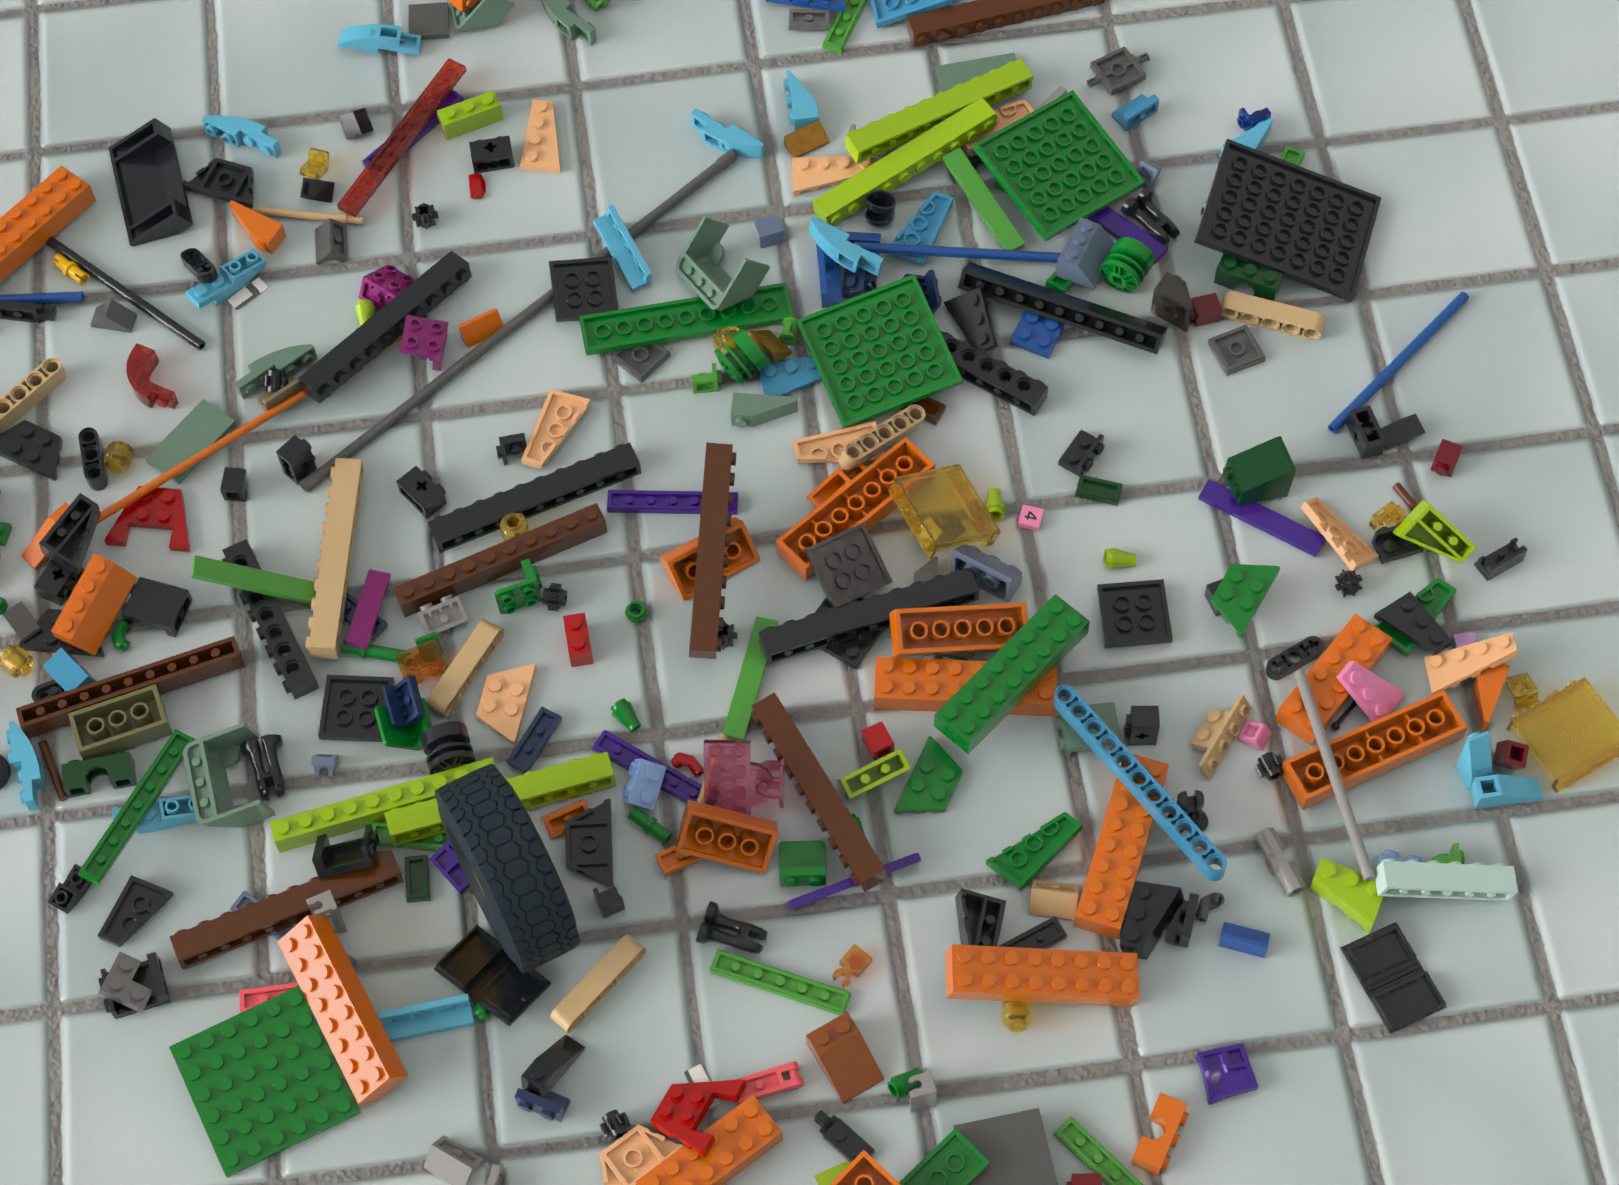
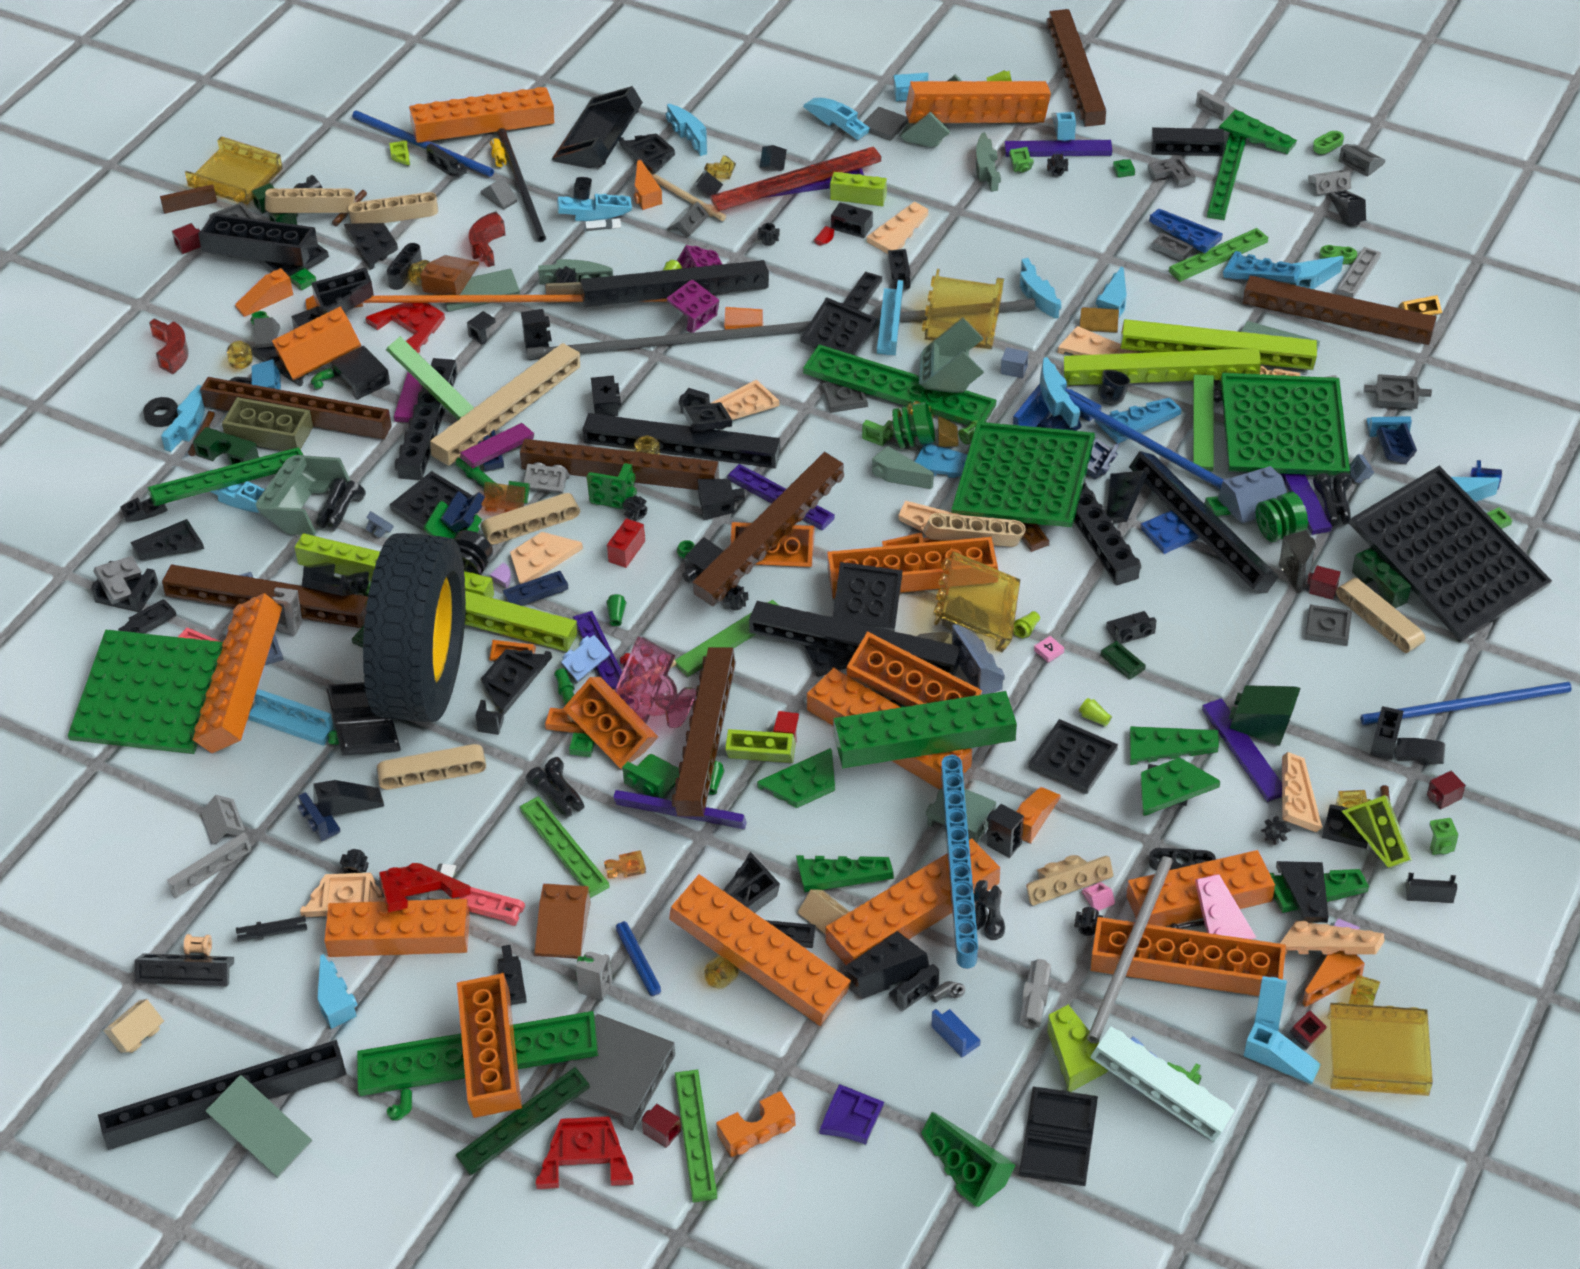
camera: 35 degrees right, 15 degrees down
(151, 444) = (447, 275): none -> dark orange slope
(190, 1006) = (149, 617): none -> black hinge
(231, 609) = (407, 399): none -> magenta tile
(488, 743) = (501, 575): none -> lavender tile
(546, 460) = (707, 416): none -> black plate
(565, 232) = (863, 291): none -> black tile
(579, 183) = (899, 266): none -> black hinge
(619, 539) = (717, 497): none -> black torso
(667, 615) = (700, 558): none -> black torso
(679, 198) = (962, 298): none -> clear yellow panel
(713, 873) = (581, 745): none -> green plate
(935, 1047) = (638, 958): none -> blue axle
(1146, 684) = (1036, 811): none -> orange slope
(1159, 127) = (1397, 443): none -> dark blue bracket
(1195, 552) = (1158, 742): none -> green wing
(1350, 1049) = (970, 1162): none -> green wedge
(1480, 503) = (1444, 836): none -> bright green bracket

